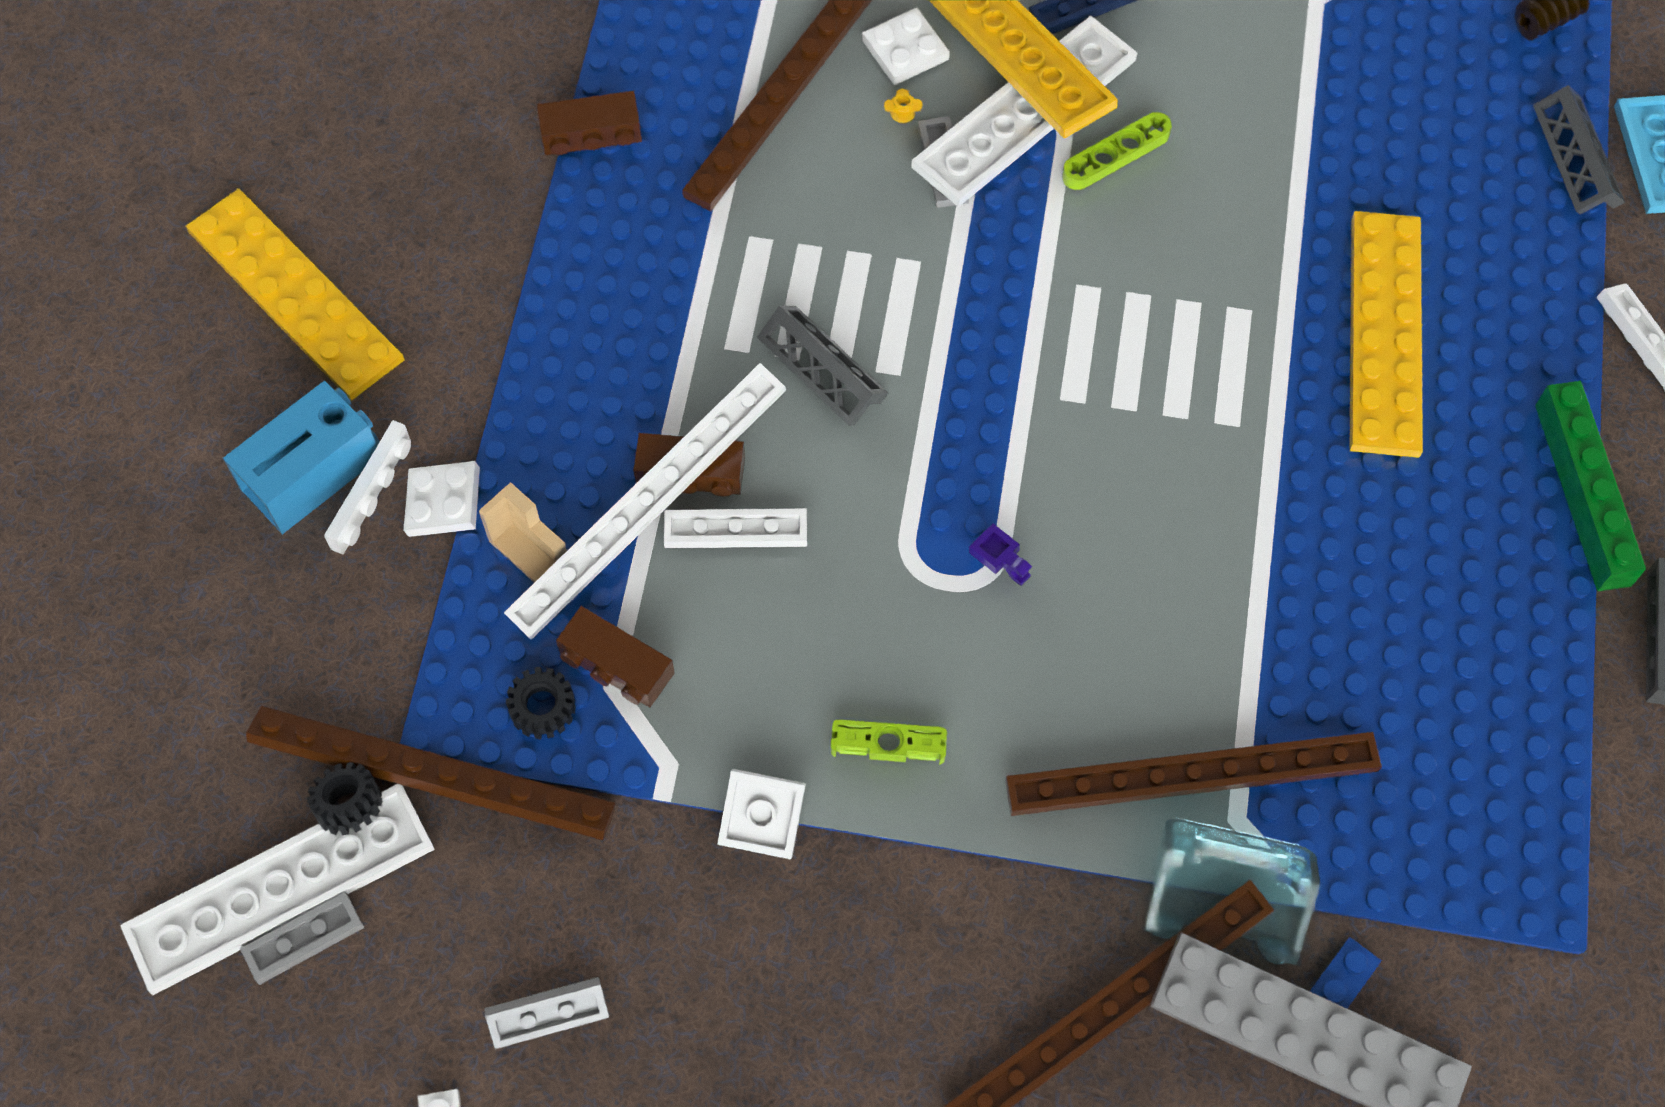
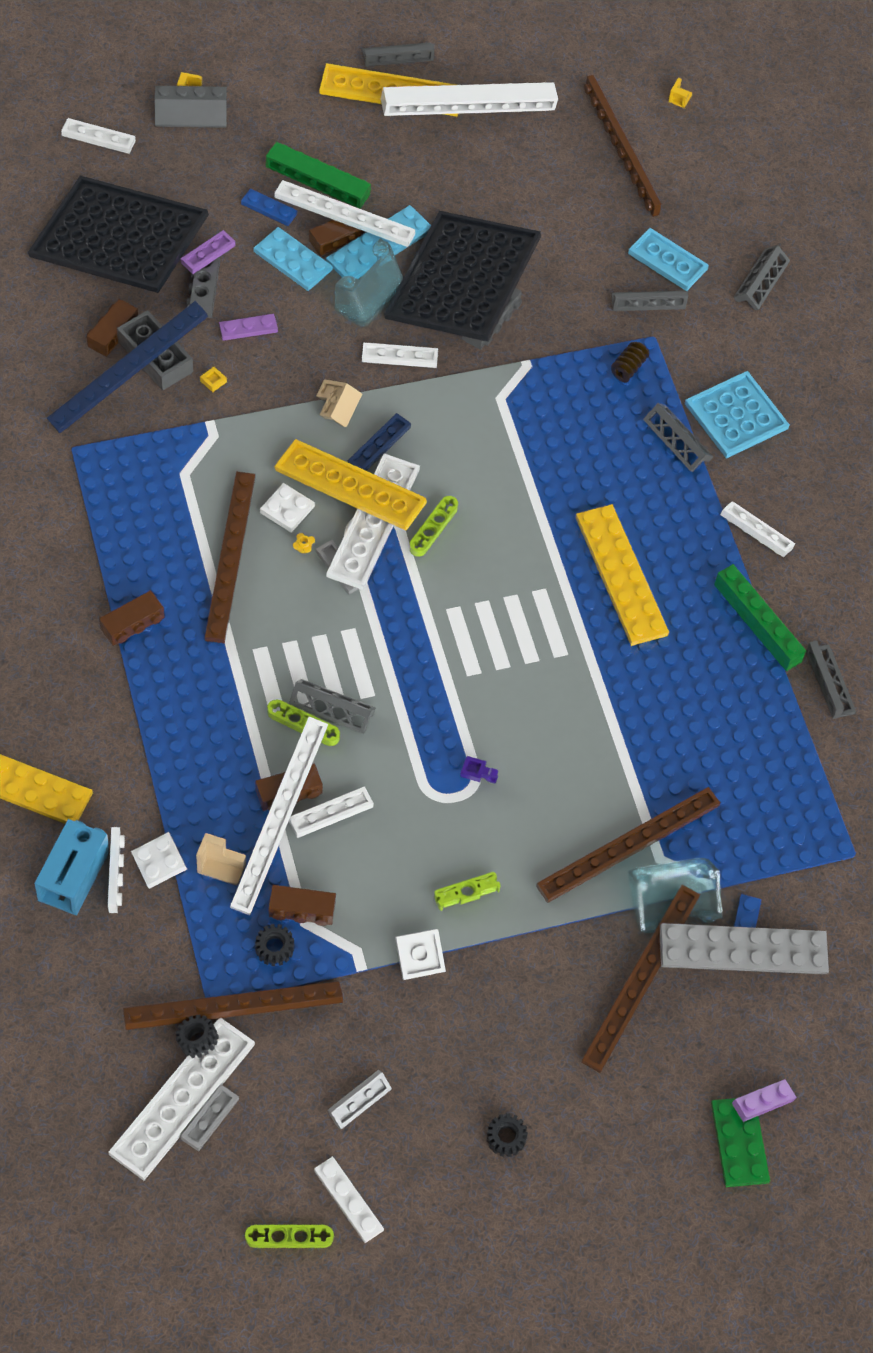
camera: 30 degrees left, 5 degrees down
(754, 347) = (299, 726): none -> lime beam

